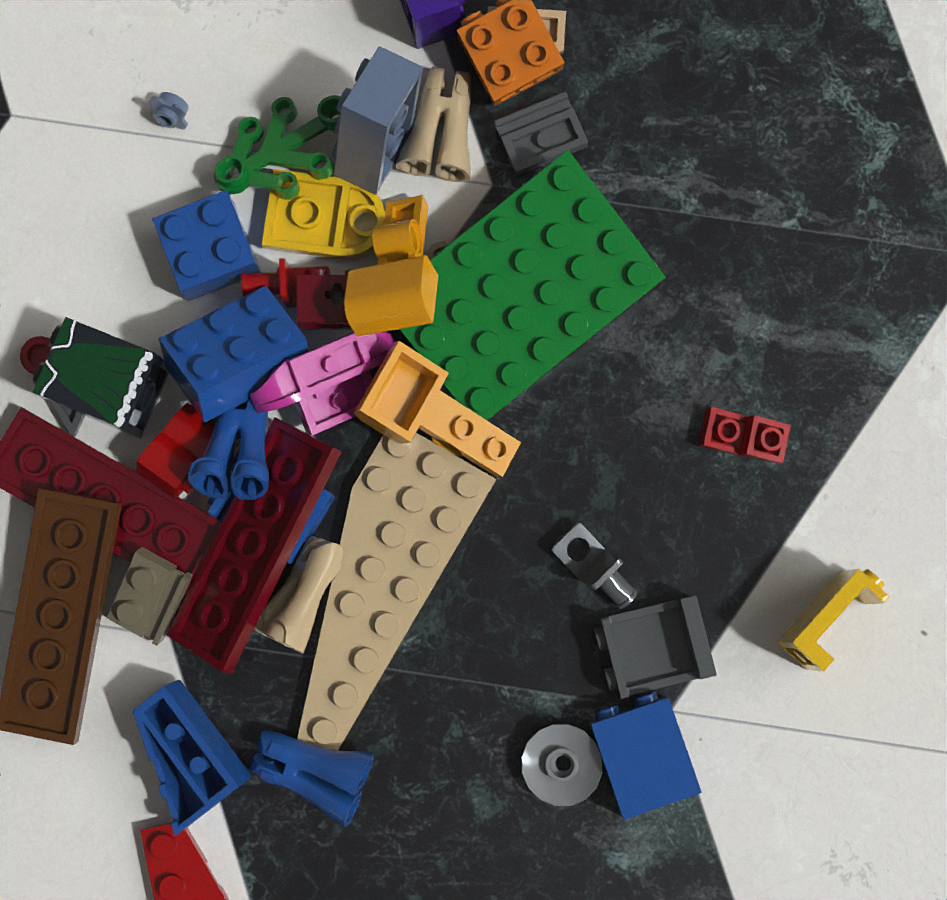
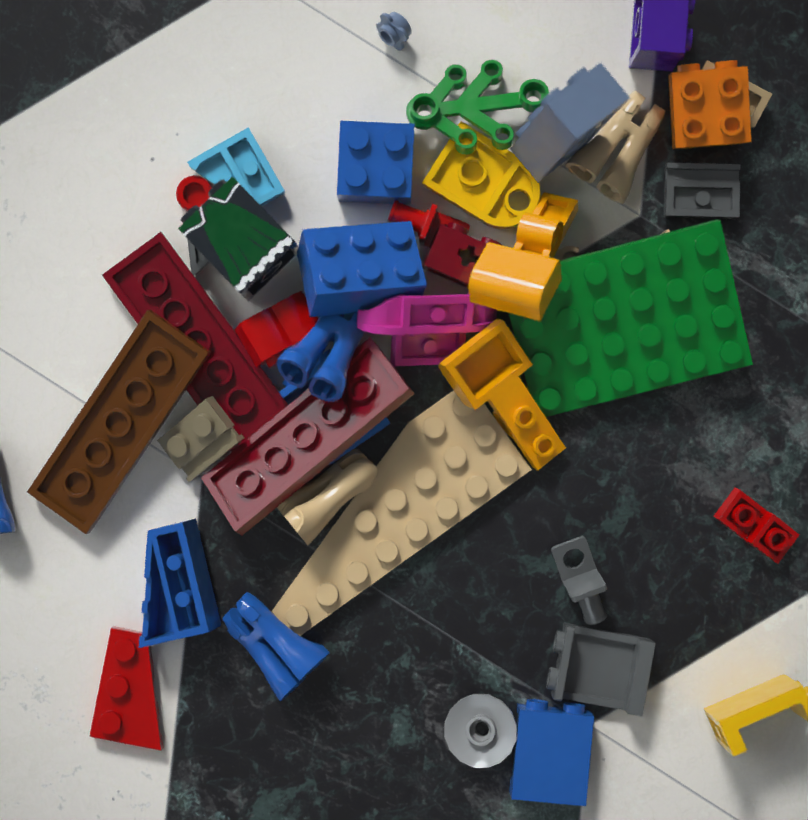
camera: 25 degrees right, 5 degrees up
(77, 300) = (245, 161): none -> medium azure wing

